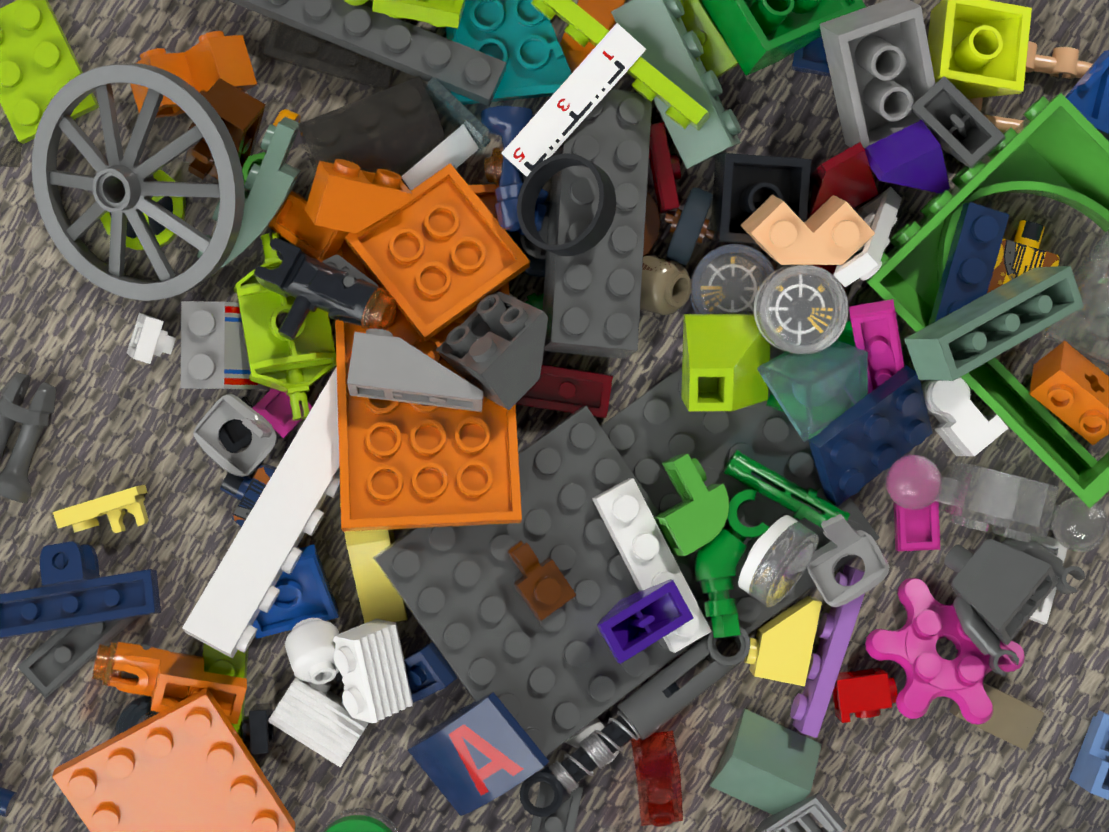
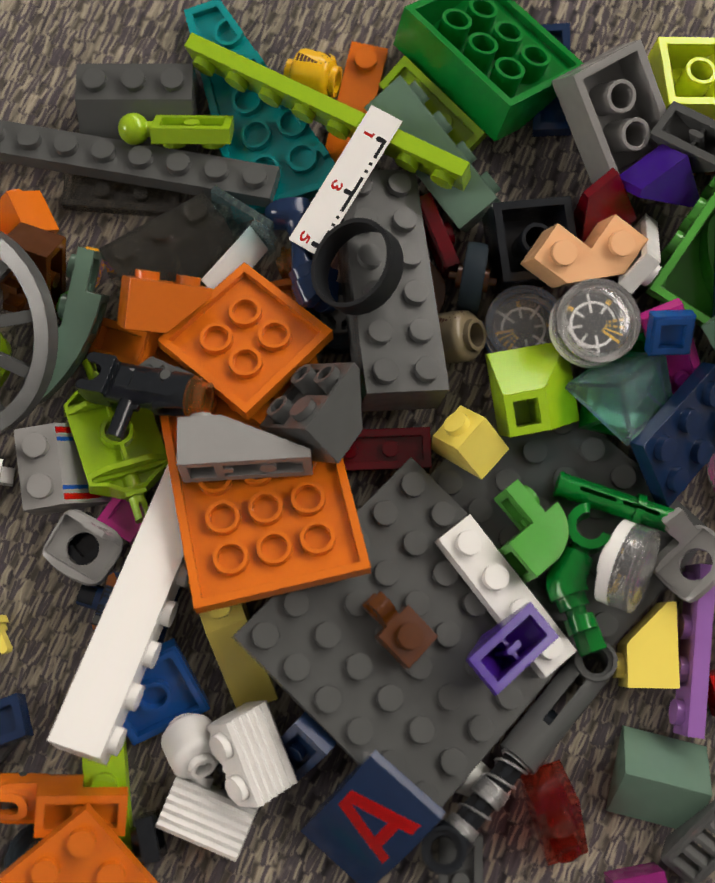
camera: 10 degrees left, 10 degrees down
(649, 405) = (469, 442): none -> light yellow slope
(875, 334) = (670, 332): none -> blue tile

